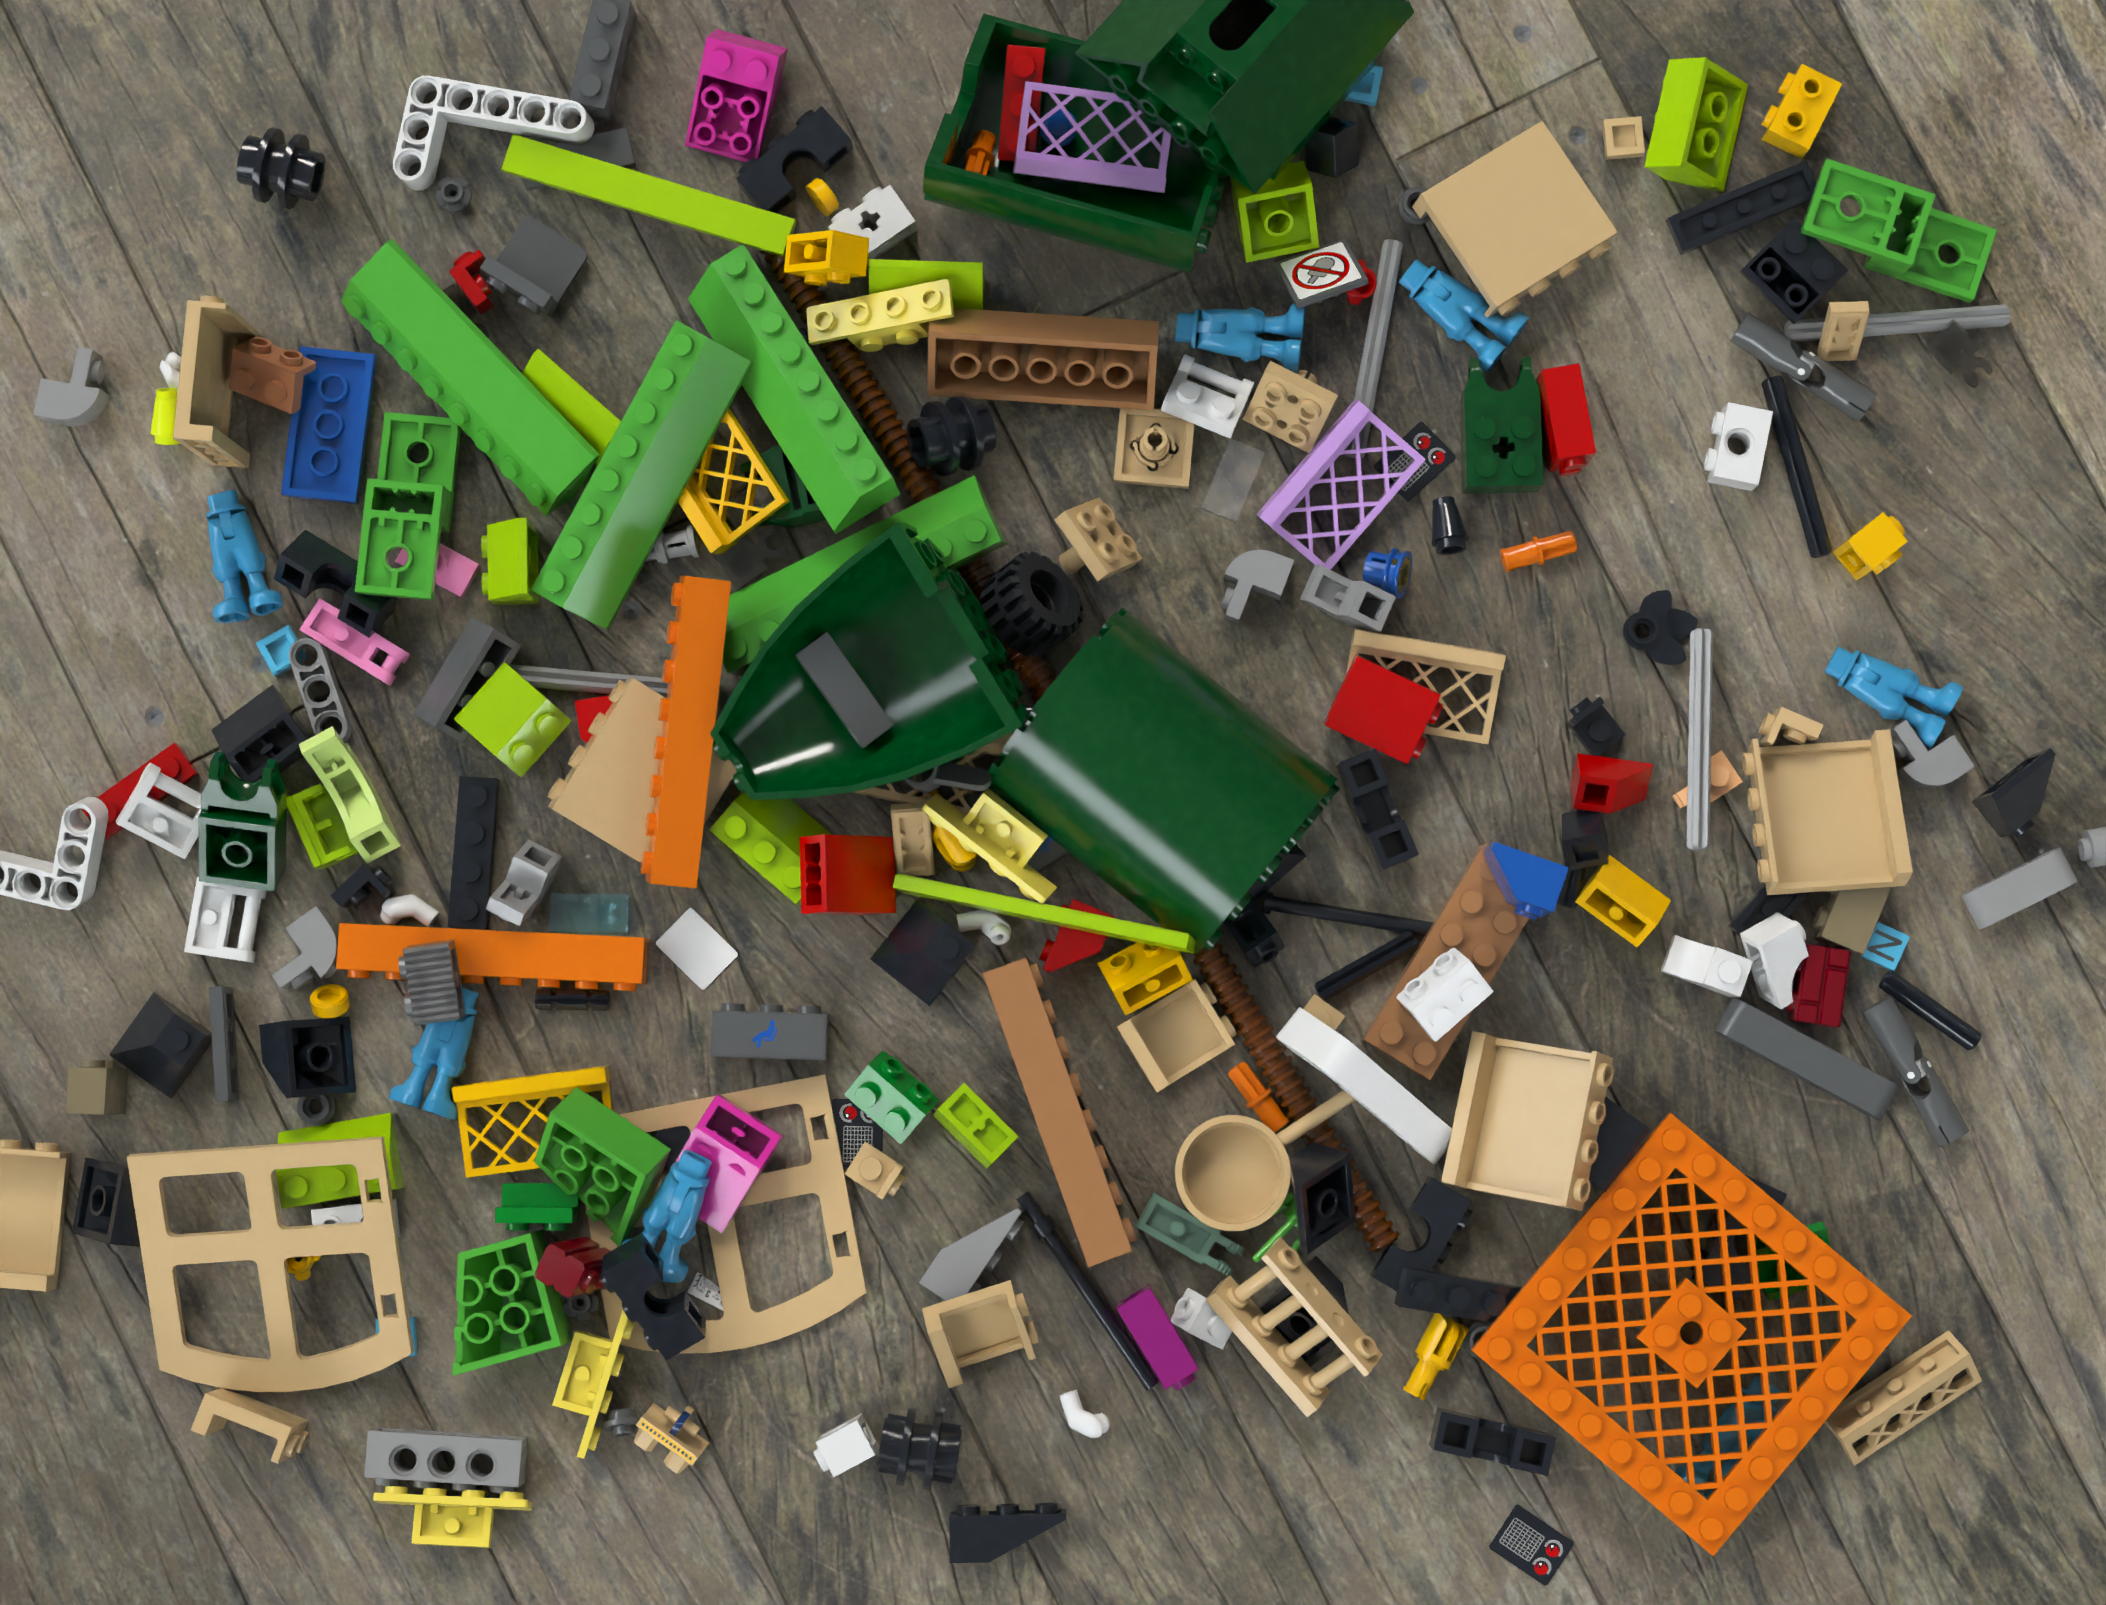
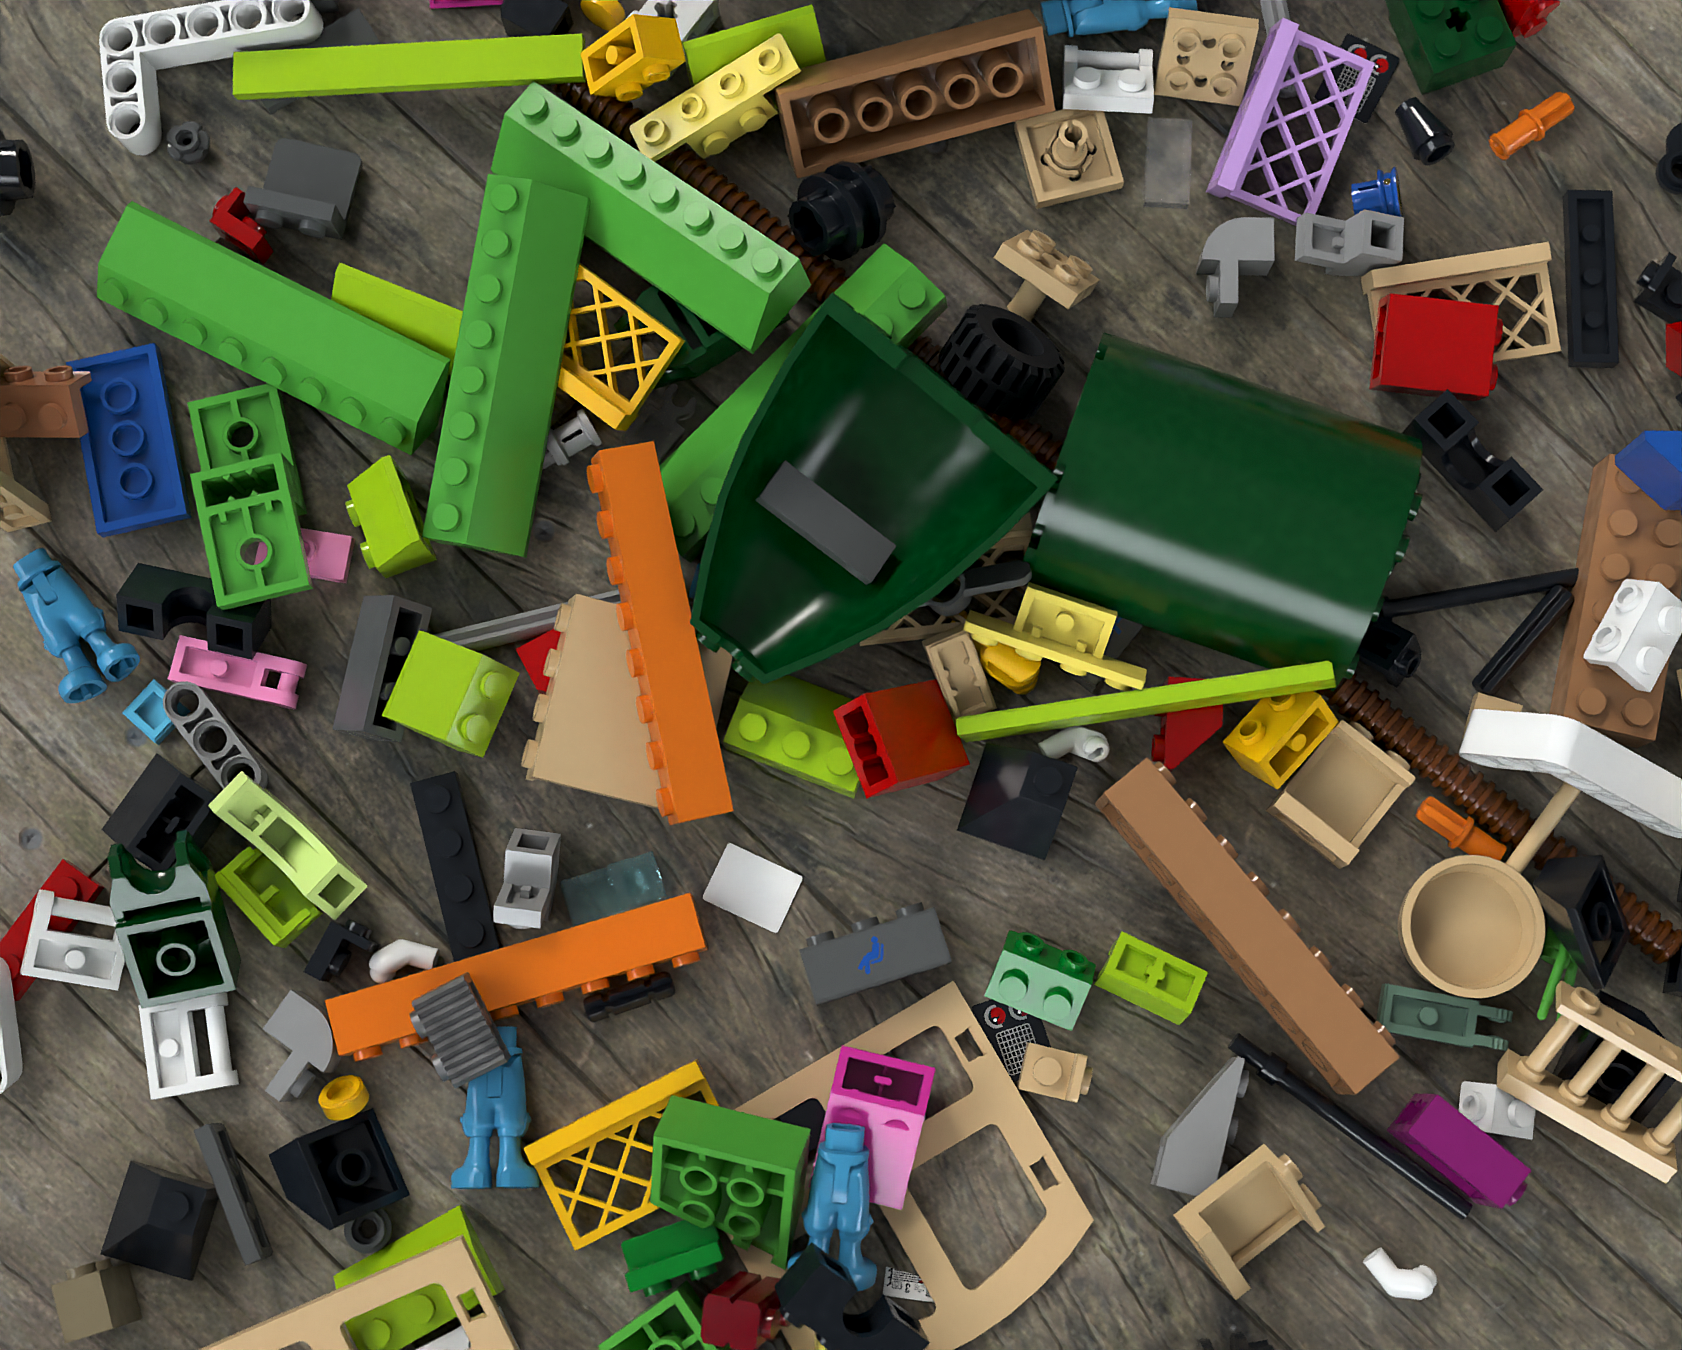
camera: 25 degrees left, 5 degrees down
(1534, 694) = (1590, 279): none -> black plate

